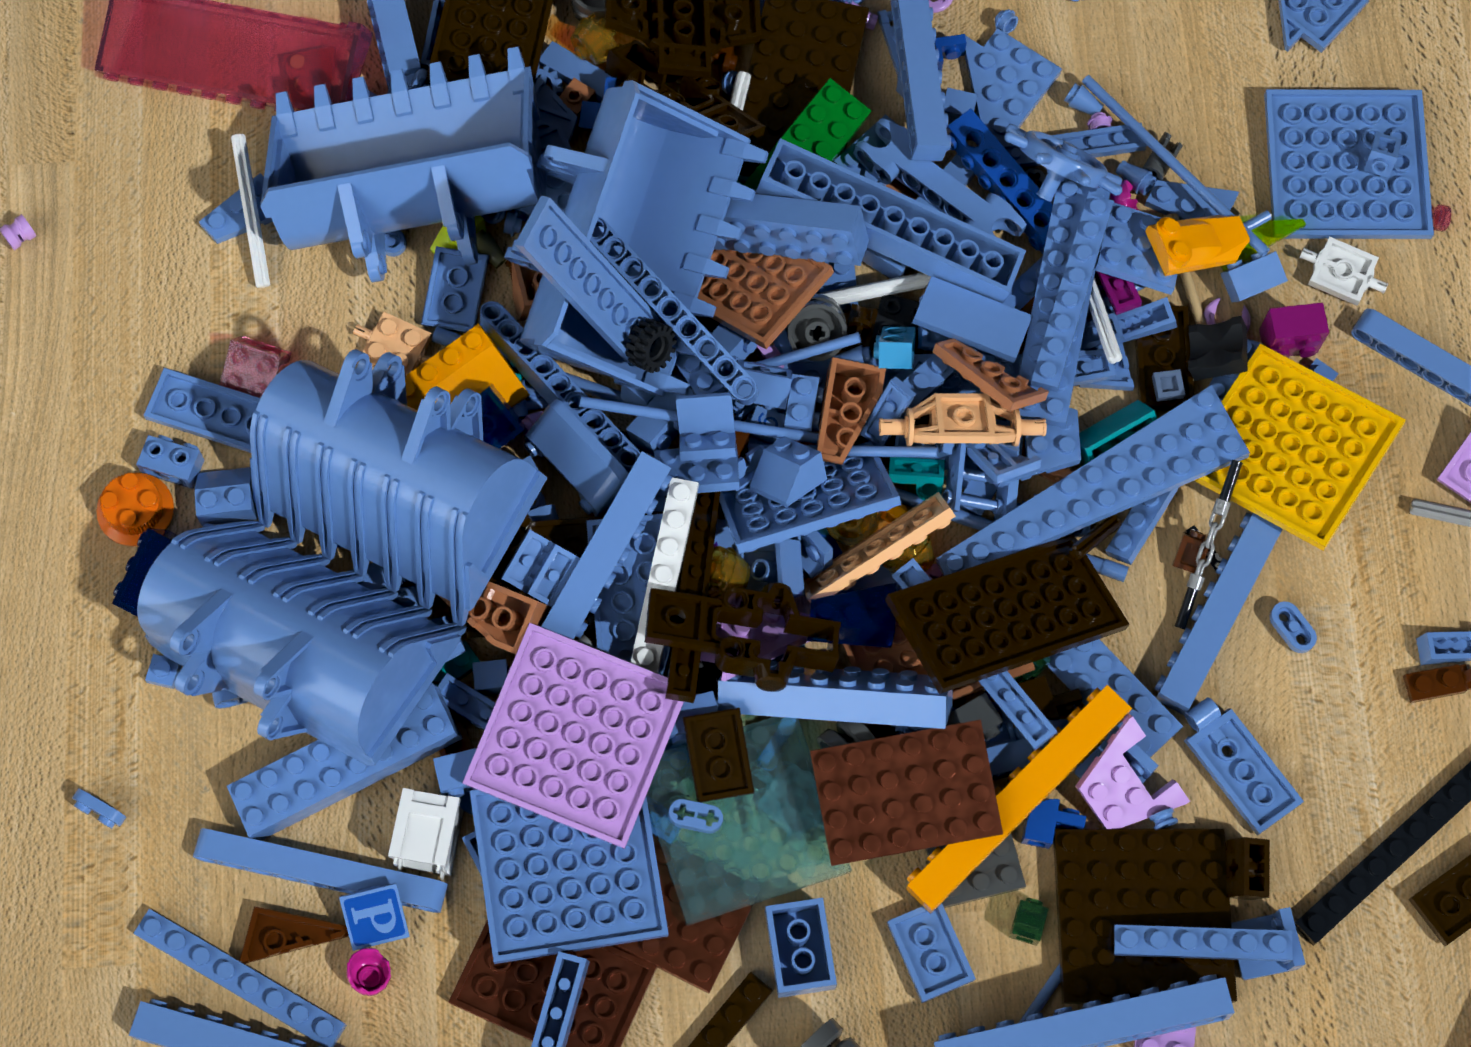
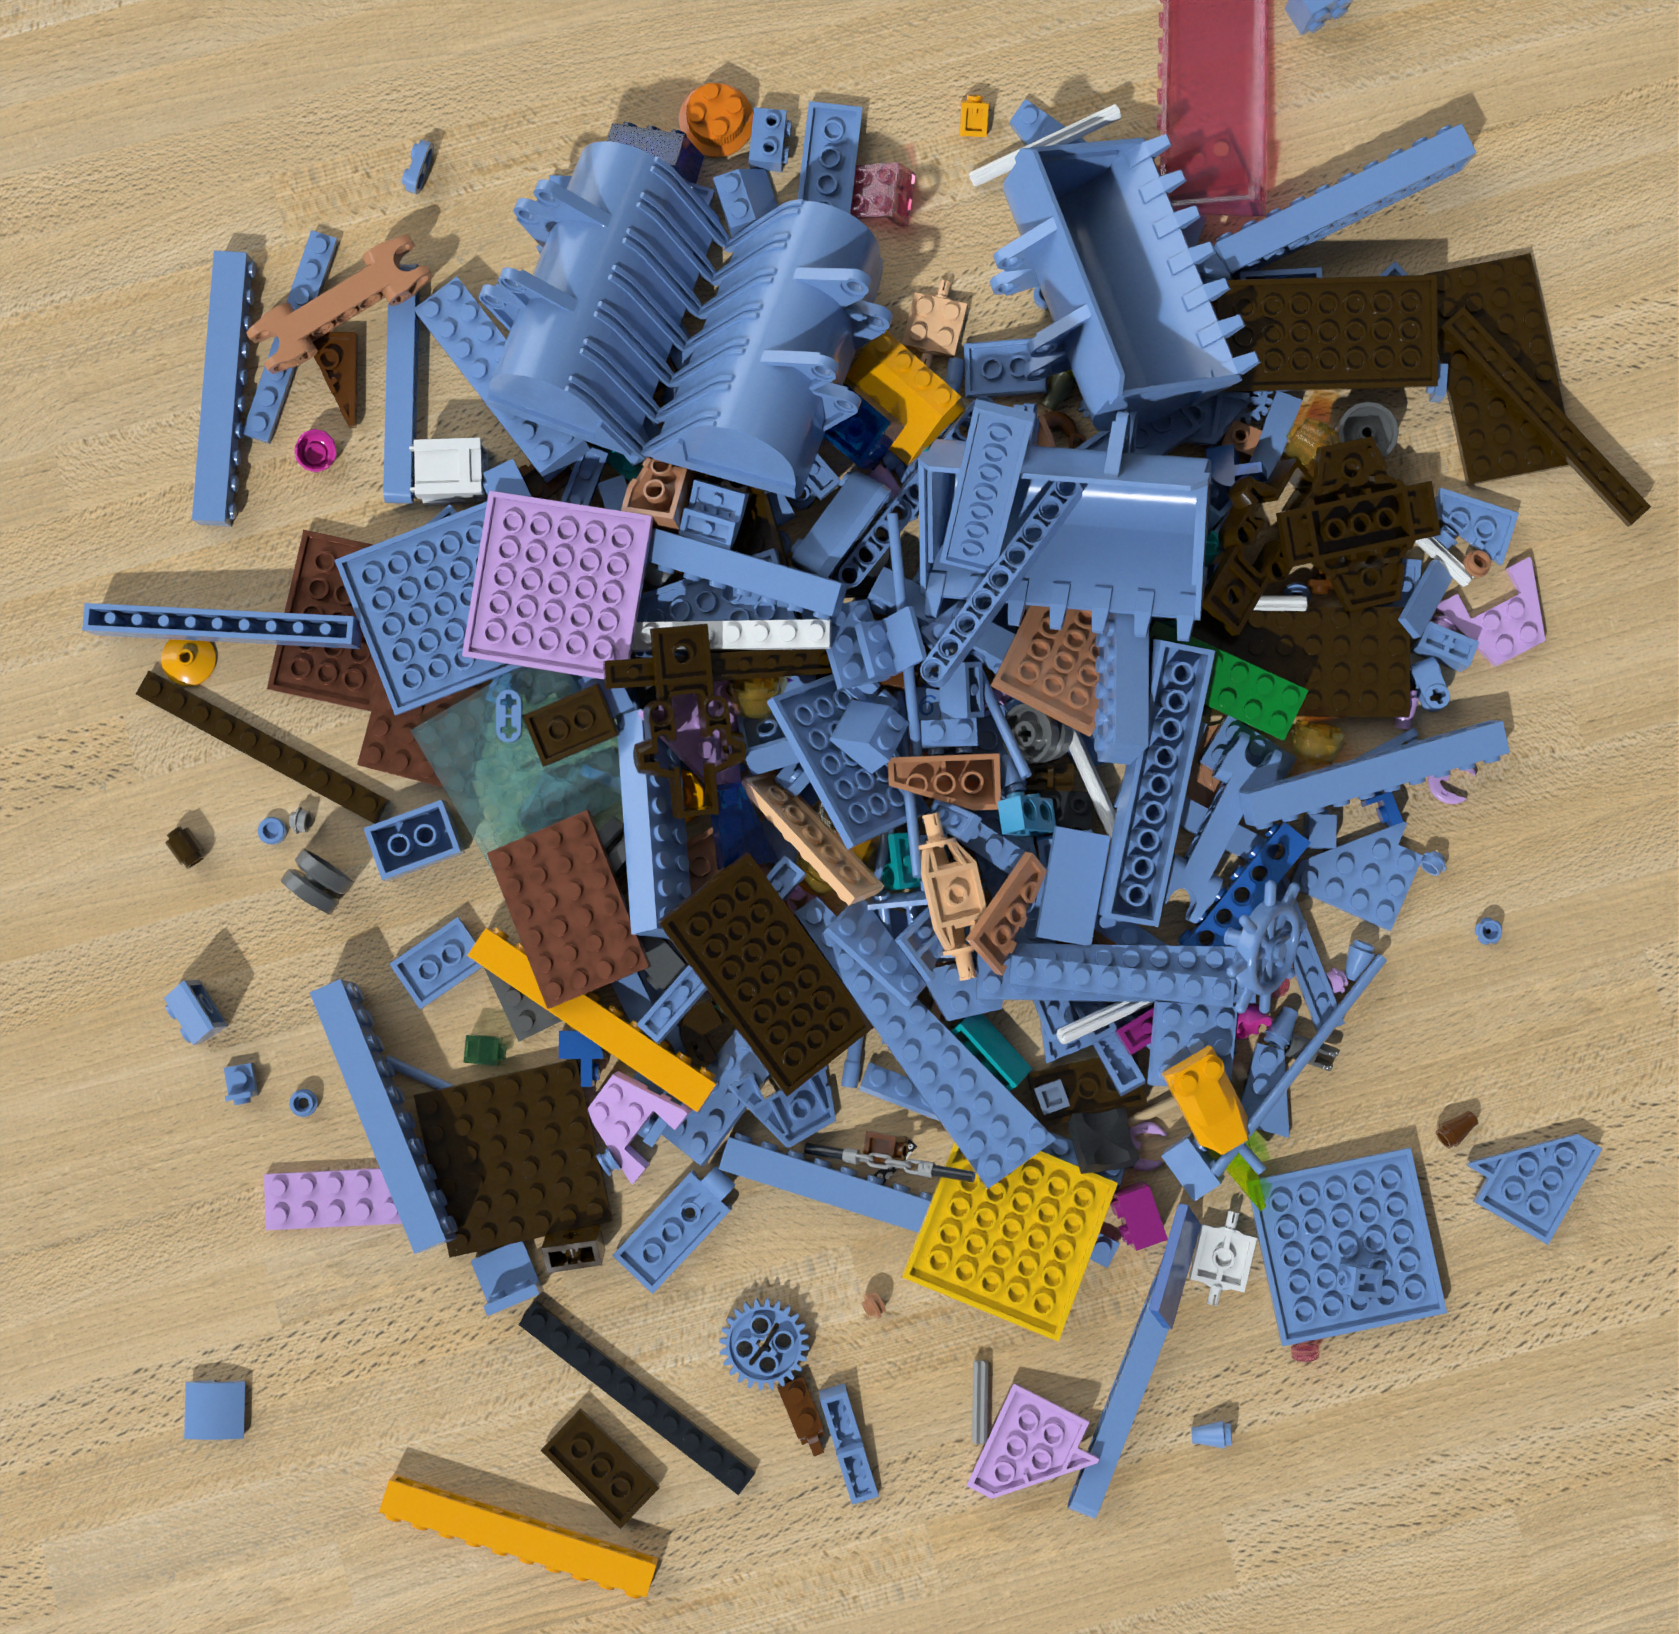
camera: 80 degrees right, 15 degrees up
(202, 269) = (974, 116): none -> light orange bracket
(237, 958) = (302, 326): none -> nougat piece
(374, 916) = (365, 442): piece -> none
(651, 345) = (958, 569): black tyre -> none
(878, 90) = (1316, 742): none -> clear yellow cone
(994, 515) = (872, 946): none -> medium blue wing
(1095, 537) = (872, 1047): dark brown axle -> none
(1147, 634) = (793, 1116): none -> medium blue wing
(1203, 943) = (489, 1216): medium blue plate -> none
(1255, 53) = (1455, 1130): none -> reddish brown cone
(1294, 627) = (828, 1259): medium blue plate -> none
(1344, 593) = (873, 1305): none -> nougat plate
(1348, 305) = (1175, 1266): none -> blue tile
(1352, 720) = (743, 1330): none -> medium blue gear

